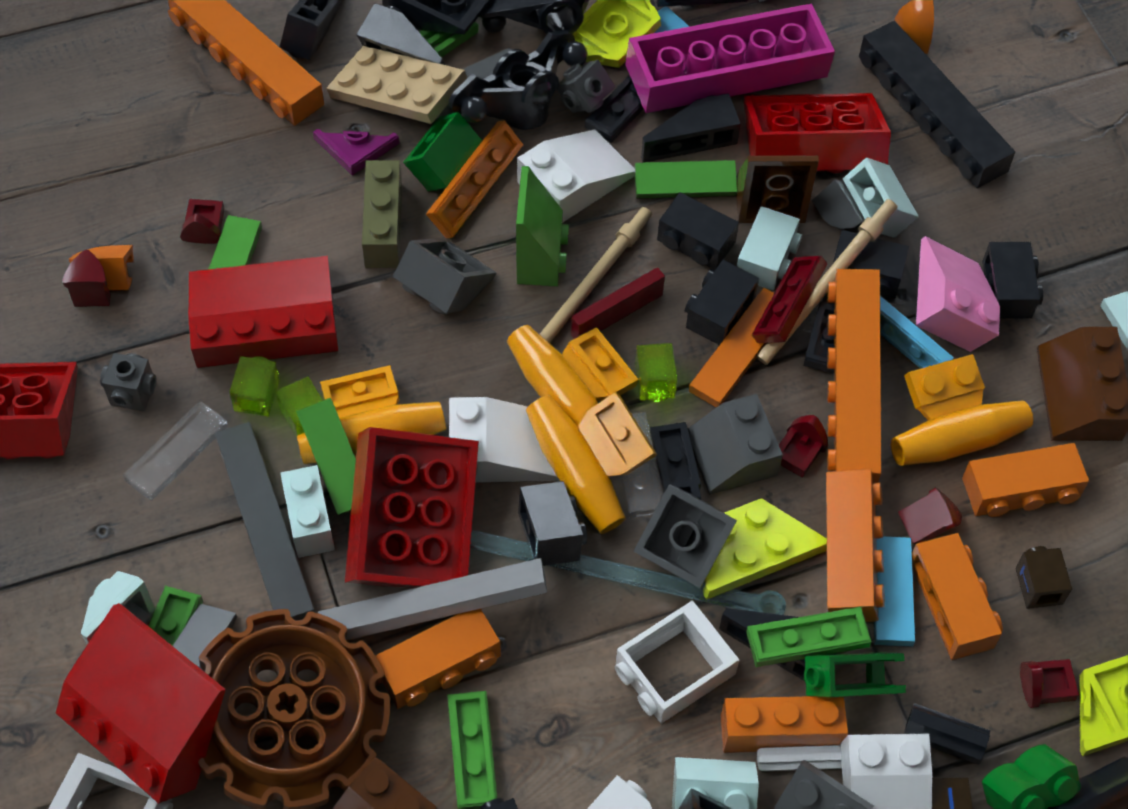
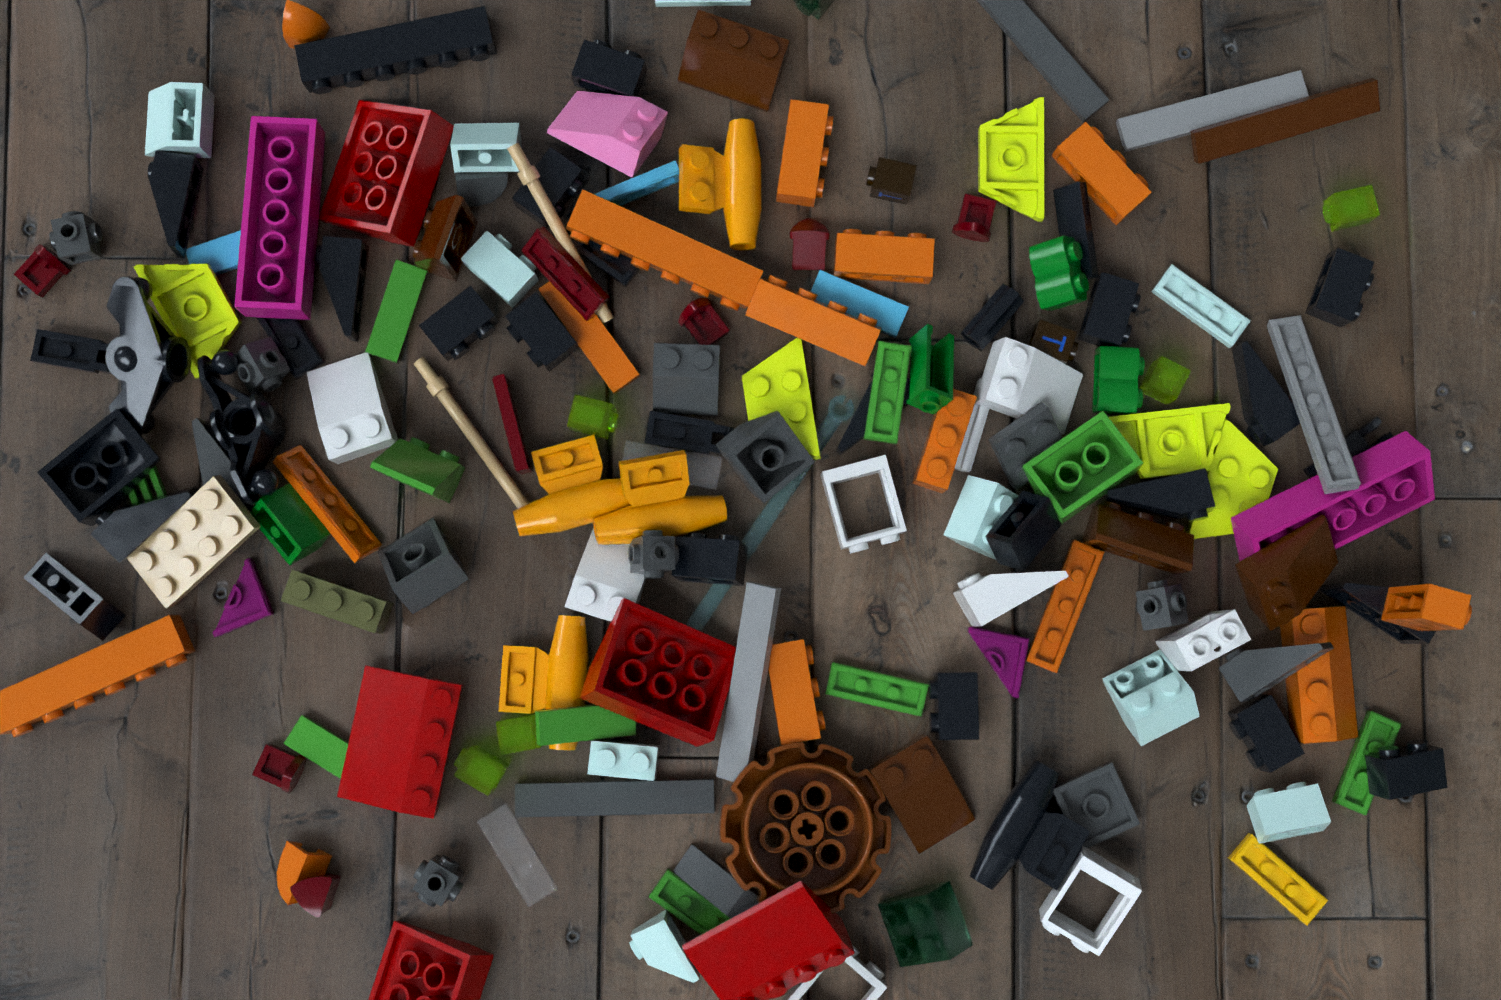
camera: 75 degrees left, 25 degrees up
(523, 463) = (653, 554): none -> dark grey brick

